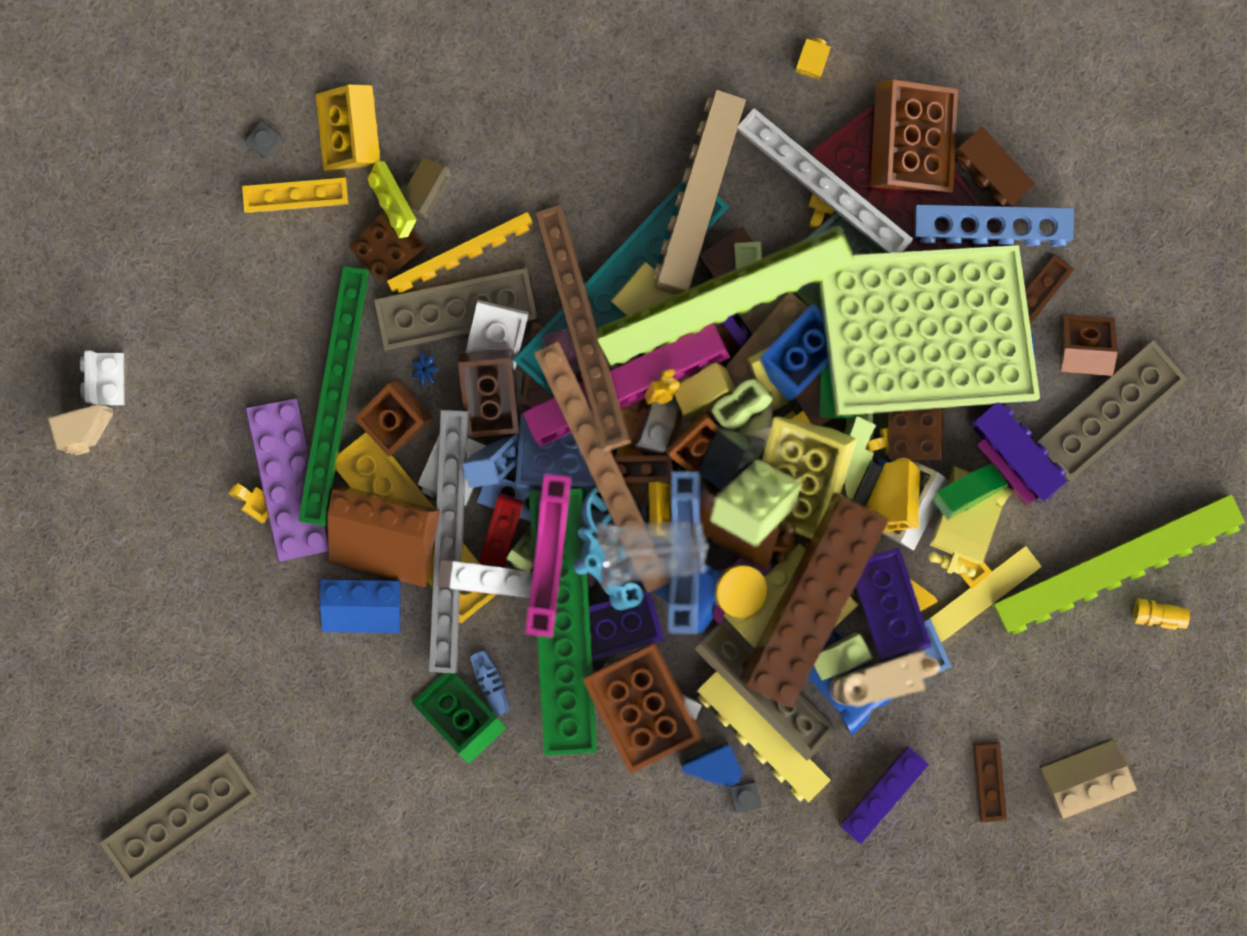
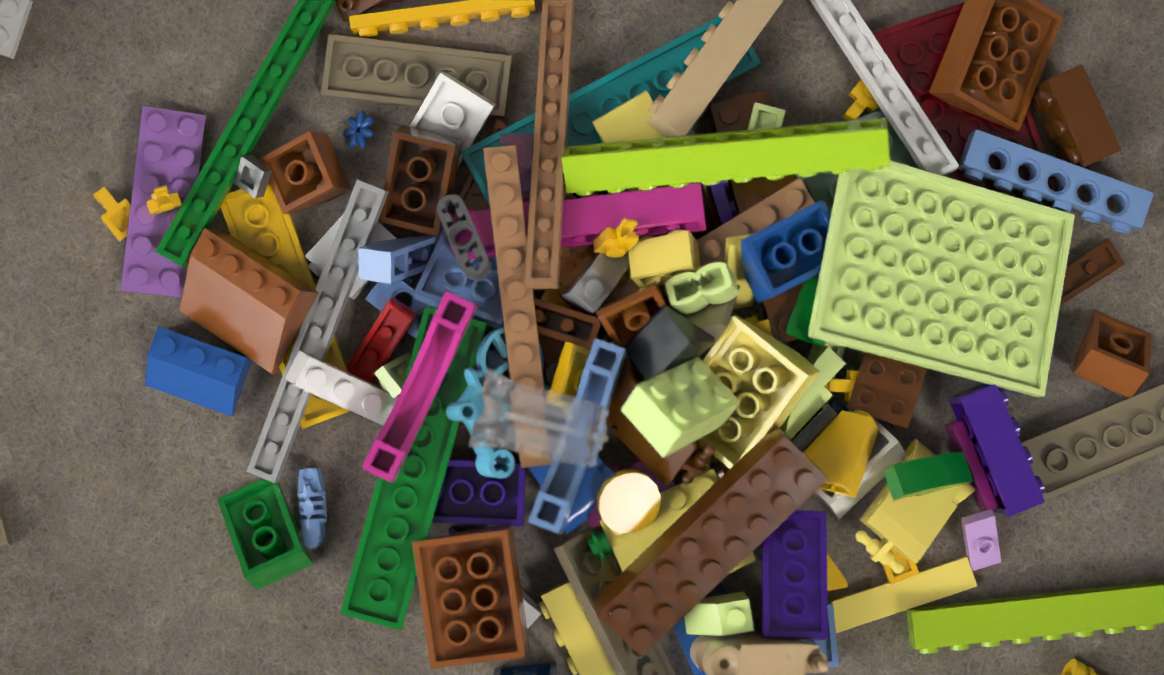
camera: 20 degrees right, 0 degrees up
(291, 479) = (163, 201): none -> yellow plate
(354, 435) = (252, 176): none -> dark grey plate
(558, 435) = (453, 229): none -> dark grey beam
(730, 634) = (600, 545): none -> green plate
(1031, 528) = (981, 539): none -> lavender plate

